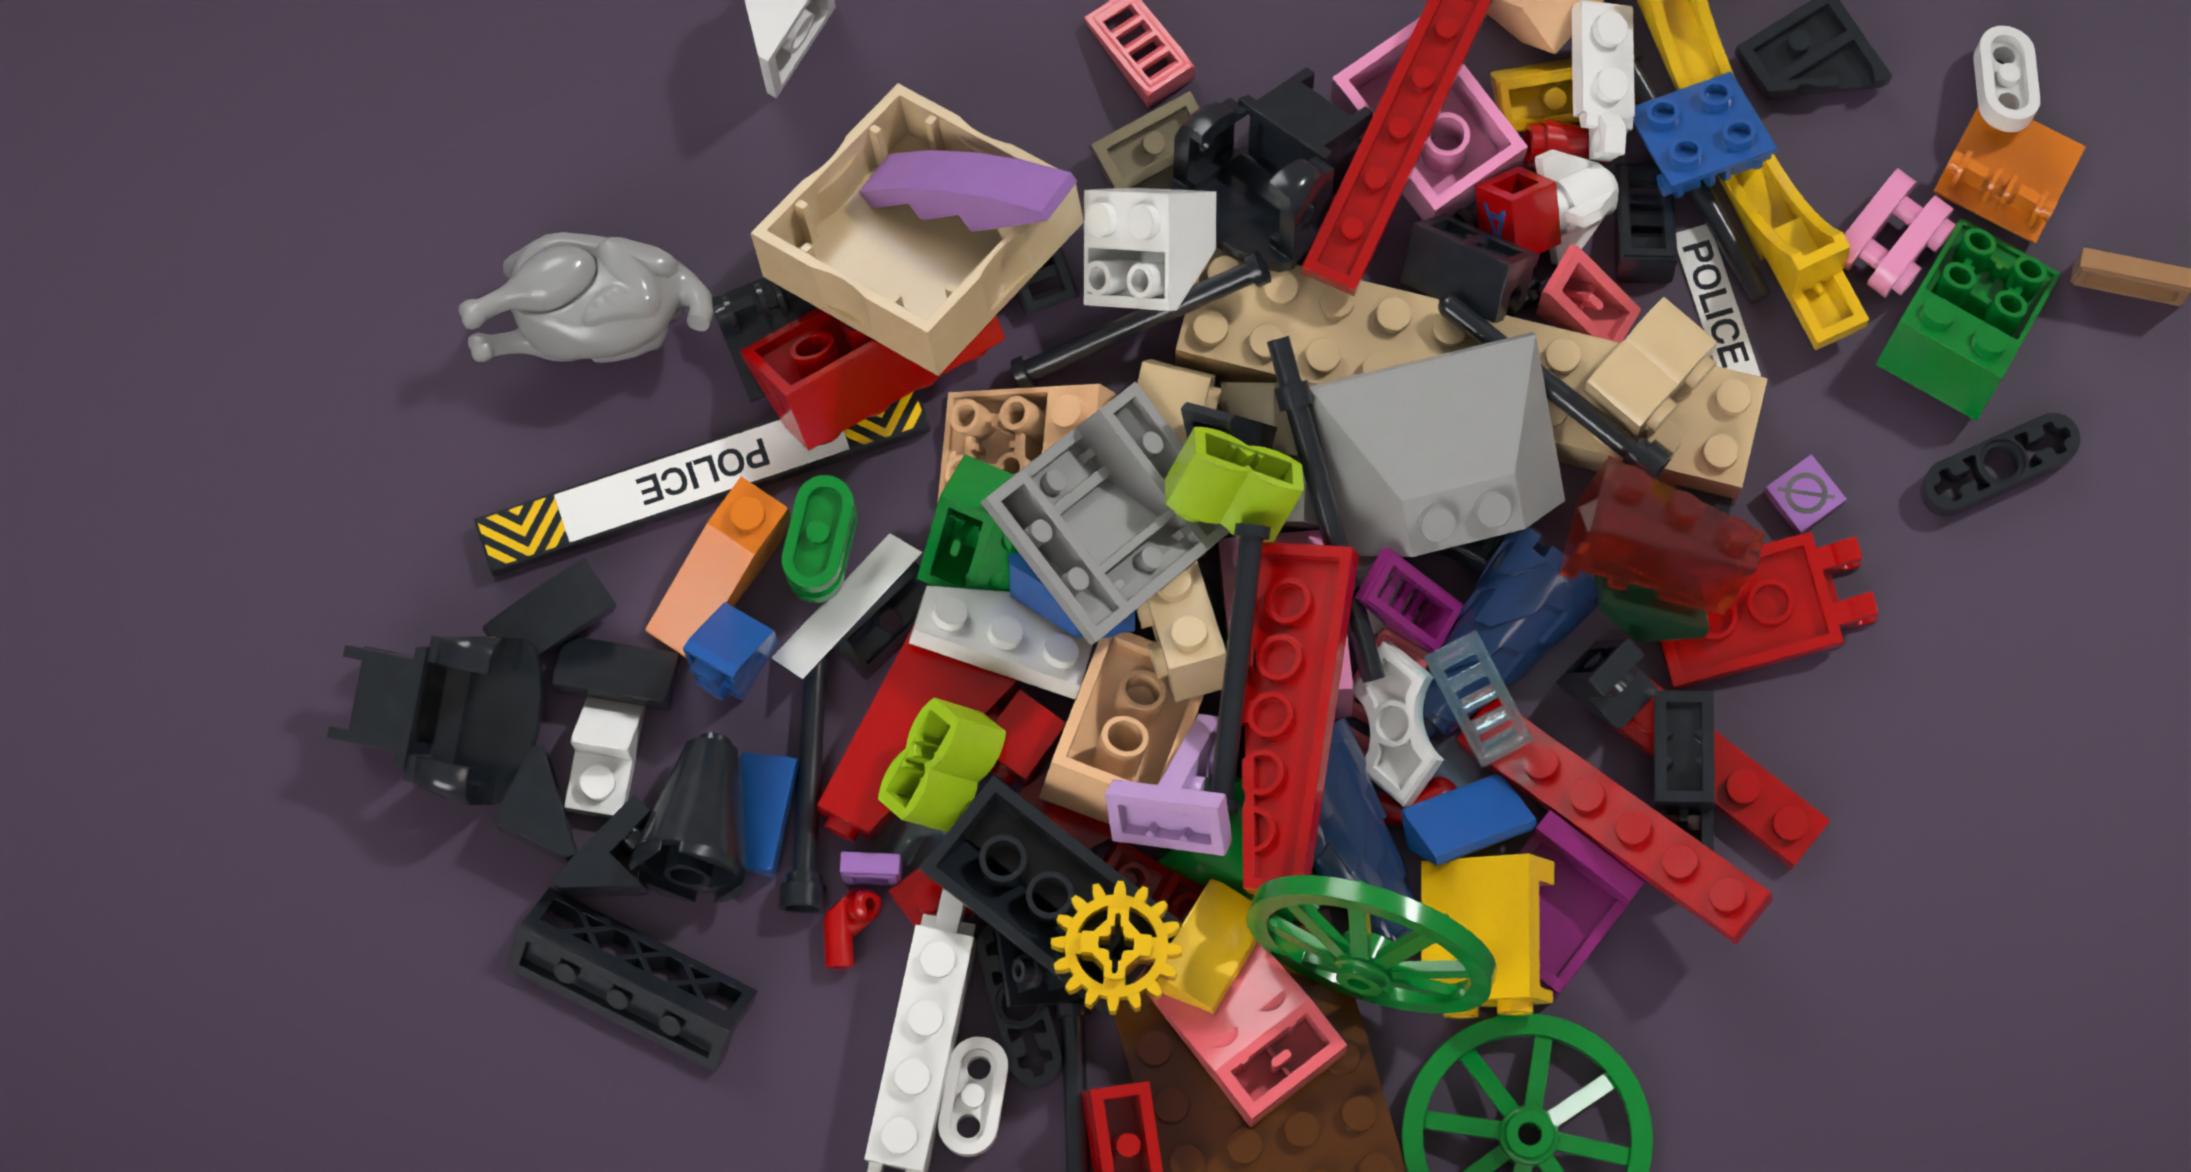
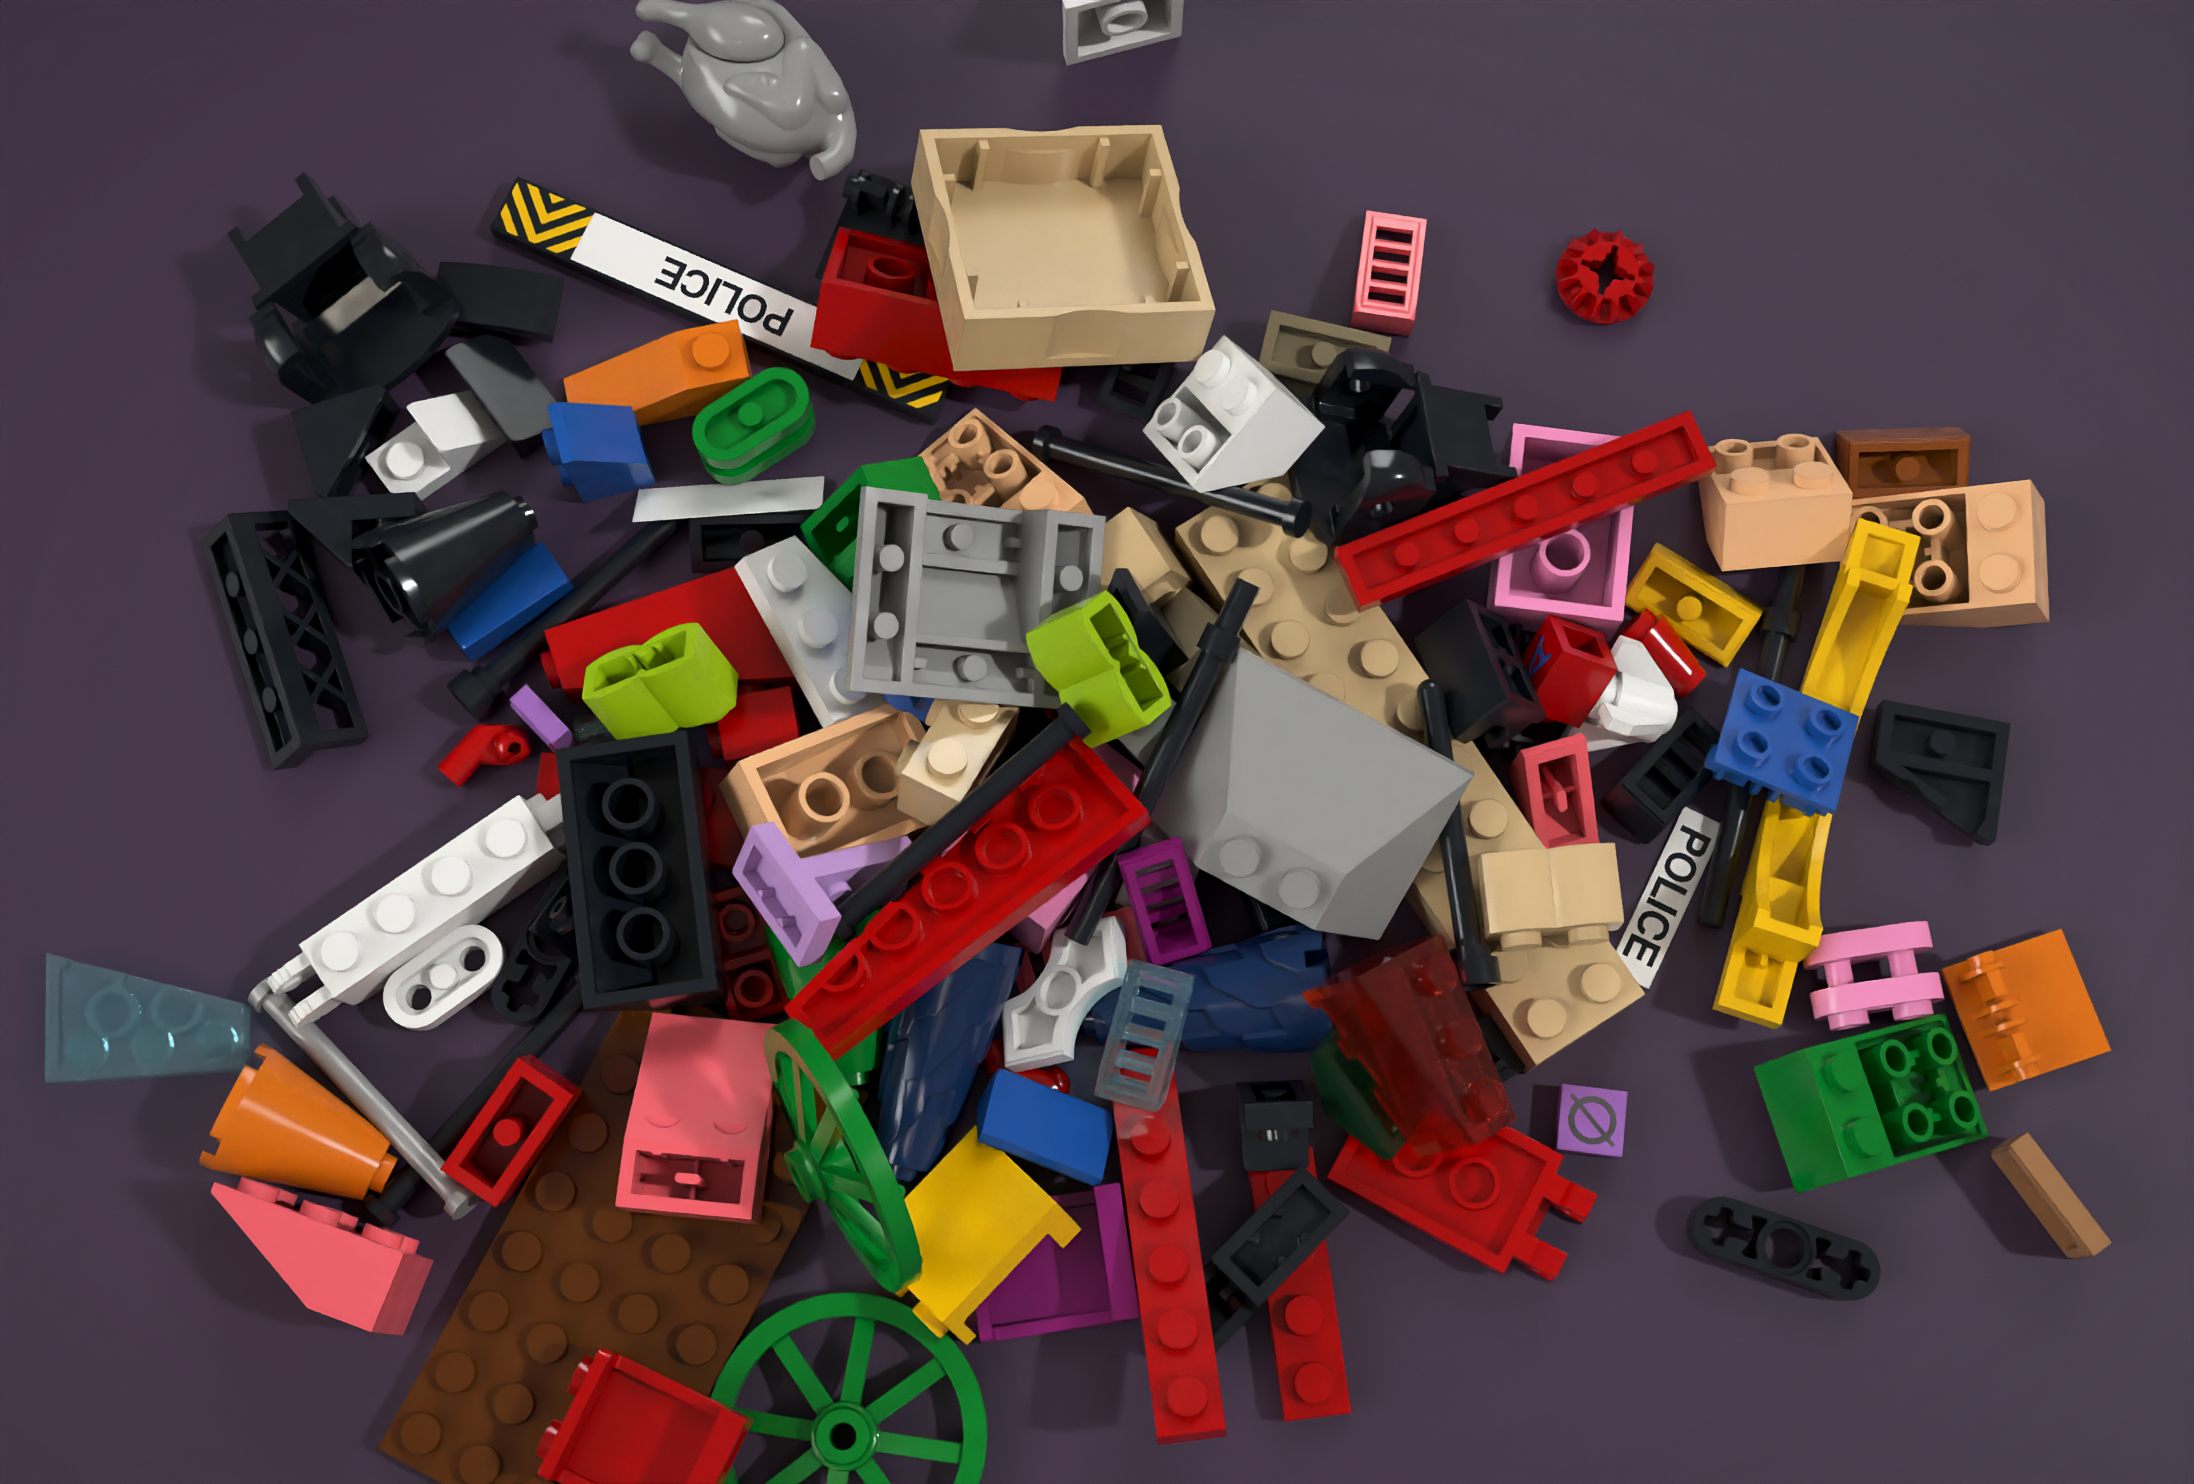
camera: 40 degrees right, 0 degrees up
(976, 186) = (1129, 246): medium lavender slope -> none
(1088, 943) = (615, 977): yellow gear -> none
(1213, 948) = (721, 1032): yellow slope -> none
(1603, 75) = (1746, 622): white hinge -> none
(2007, 91) = (2091, 938): white plate -> none

